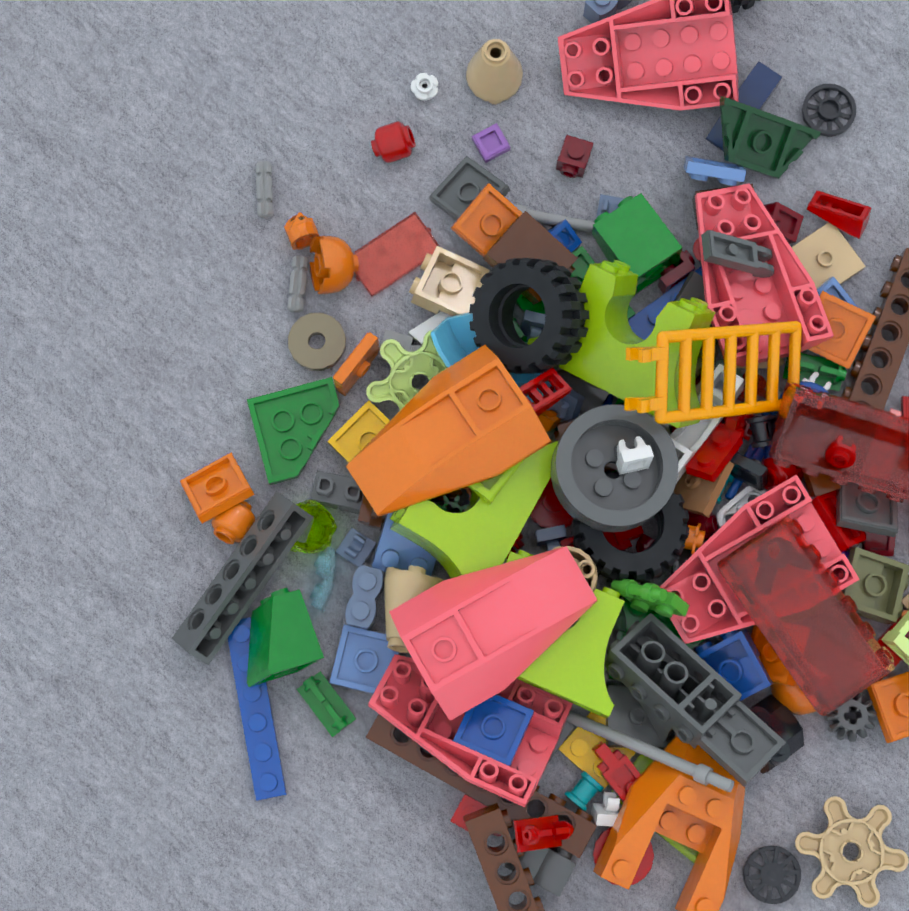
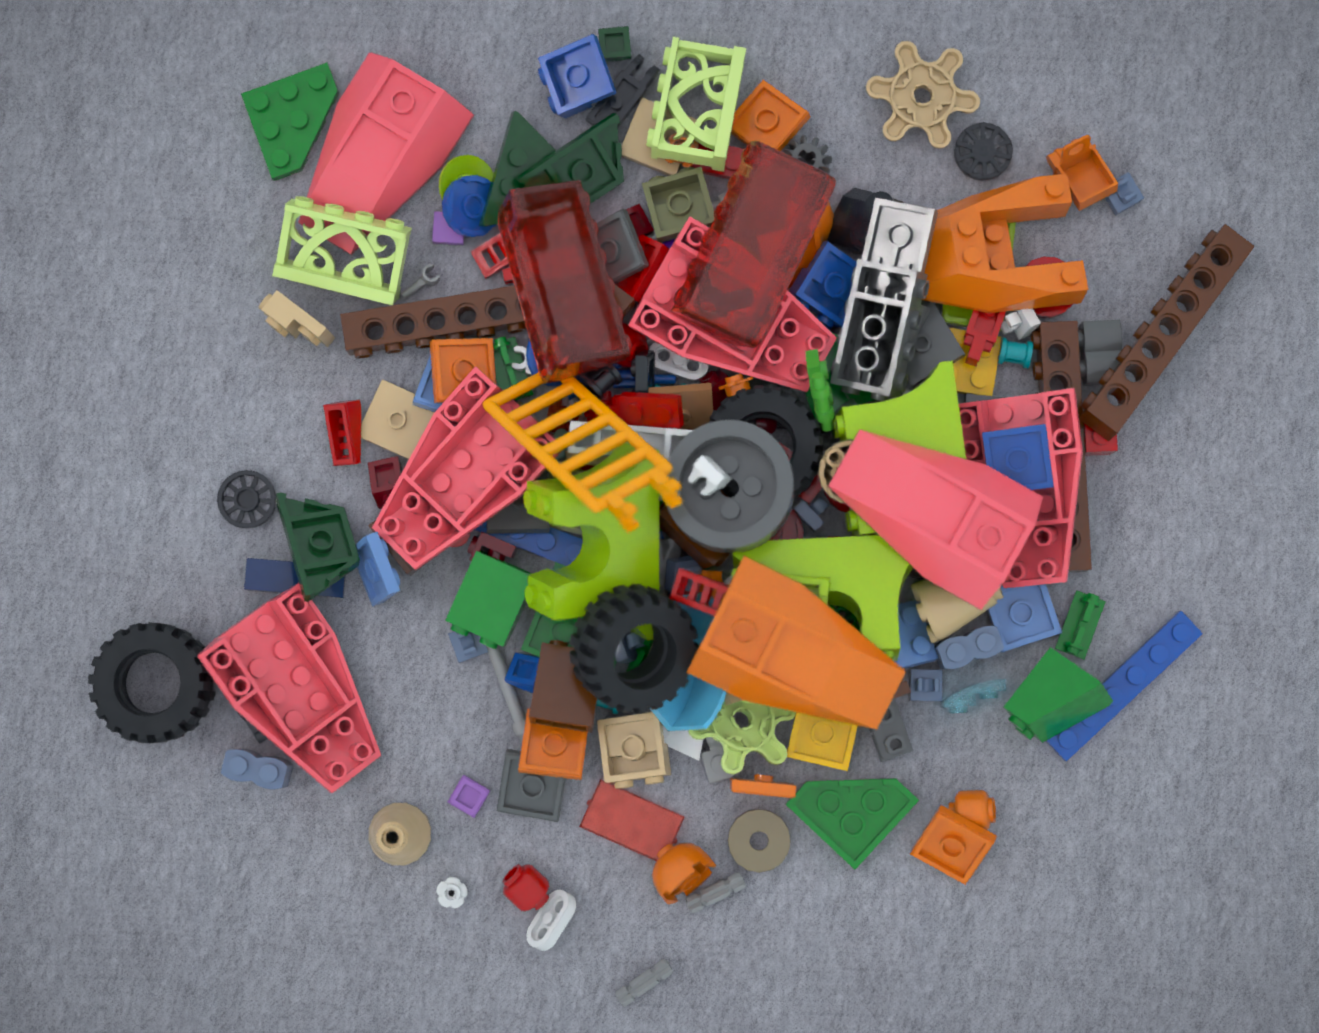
camera: 120 degrees left, 5 degrees up
(242, 578) = (1020, 768): dark grey brick -> none
(300, 231) = (664, 921): orange rock -> none
(321, 529) = (938, 724): clear neon green helmet -> none
(356, 146) = (551, 920): none -> white plate
(541, 833) = (1081, 364): red hinge -> none
(574, 157) = (436, 709): dark red bracket -> none
(700, 773) = (947, 254): light grey bar -> none
(736, 254) = (453, 498): dark grey hinge -> none
(840, 454) = (586, 295): red plate -> none

